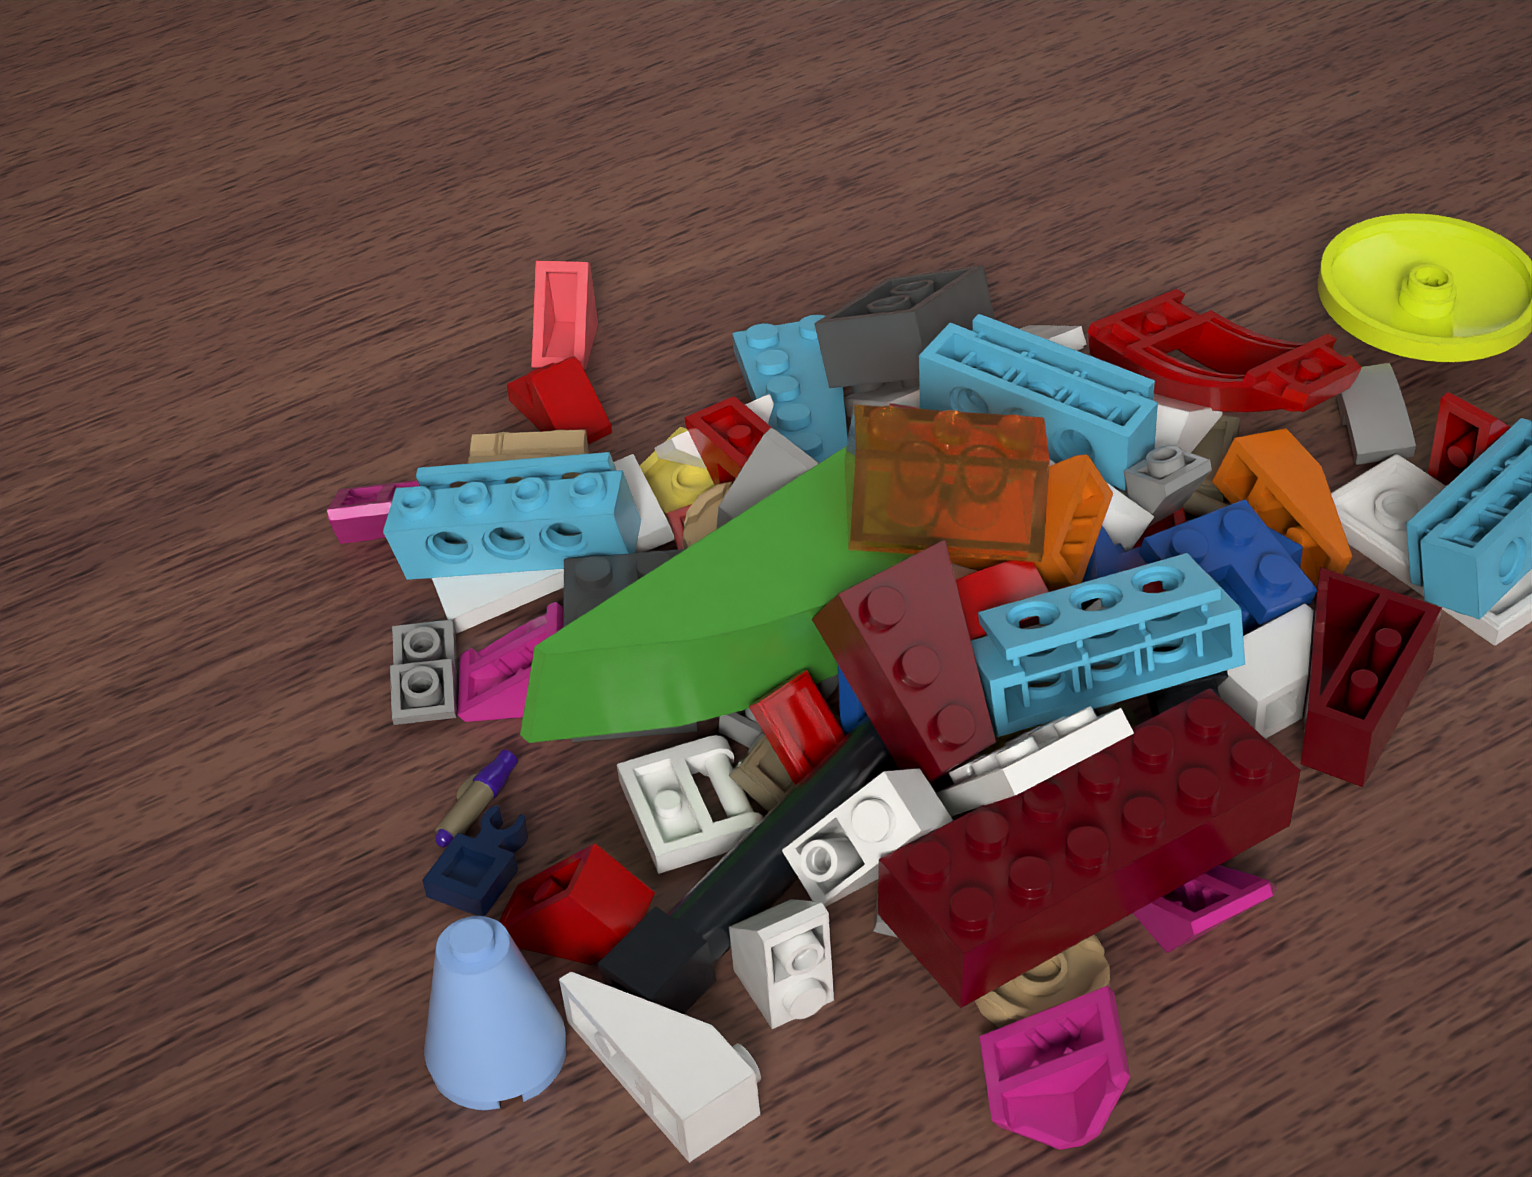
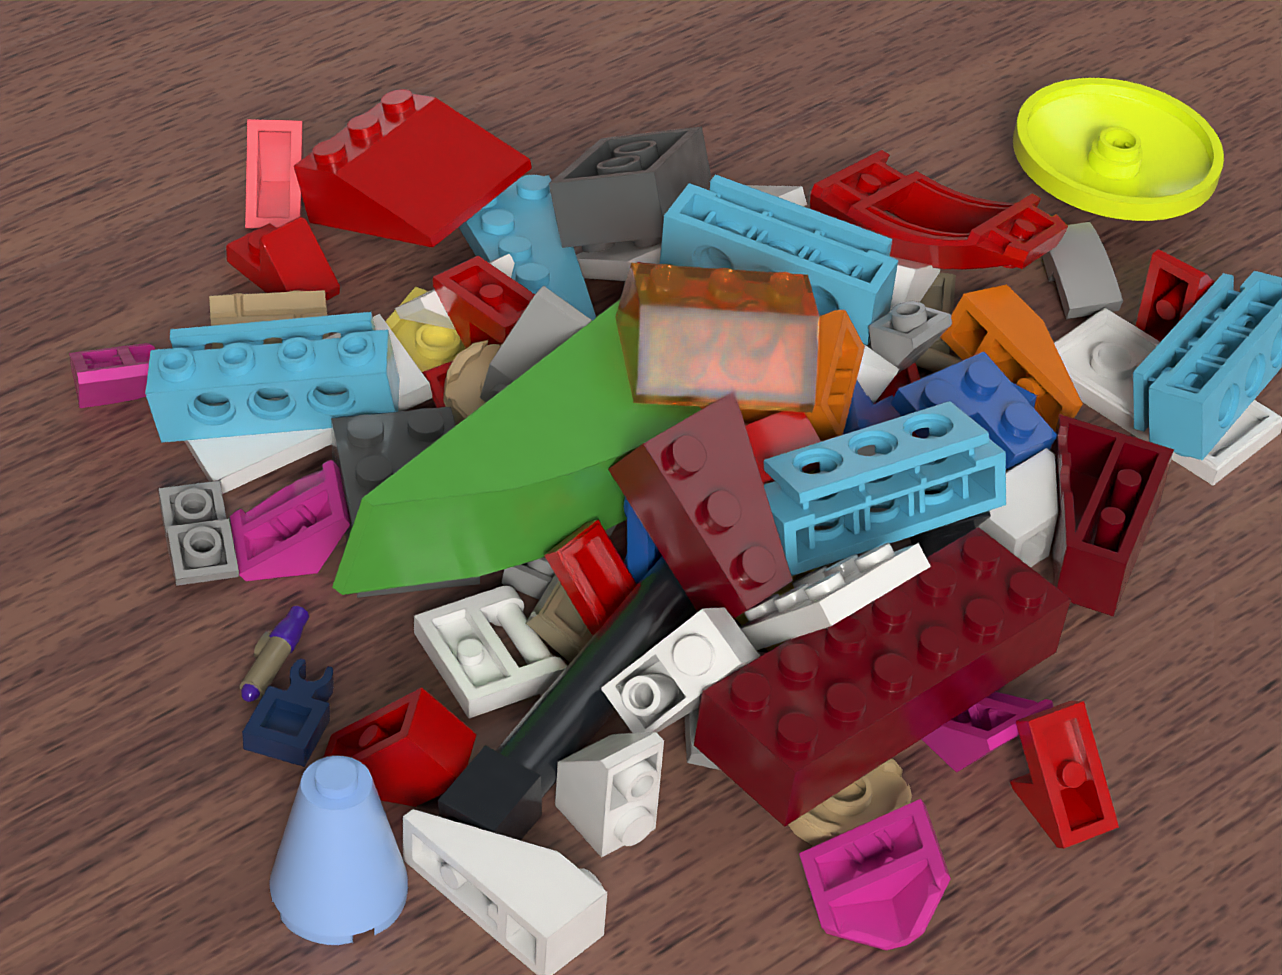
camera: 15 degrees left, 0 degrees up
(689, 311) = (406, 171): none -> red slope
(1279, 964) = (1066, 775): none -> red slope

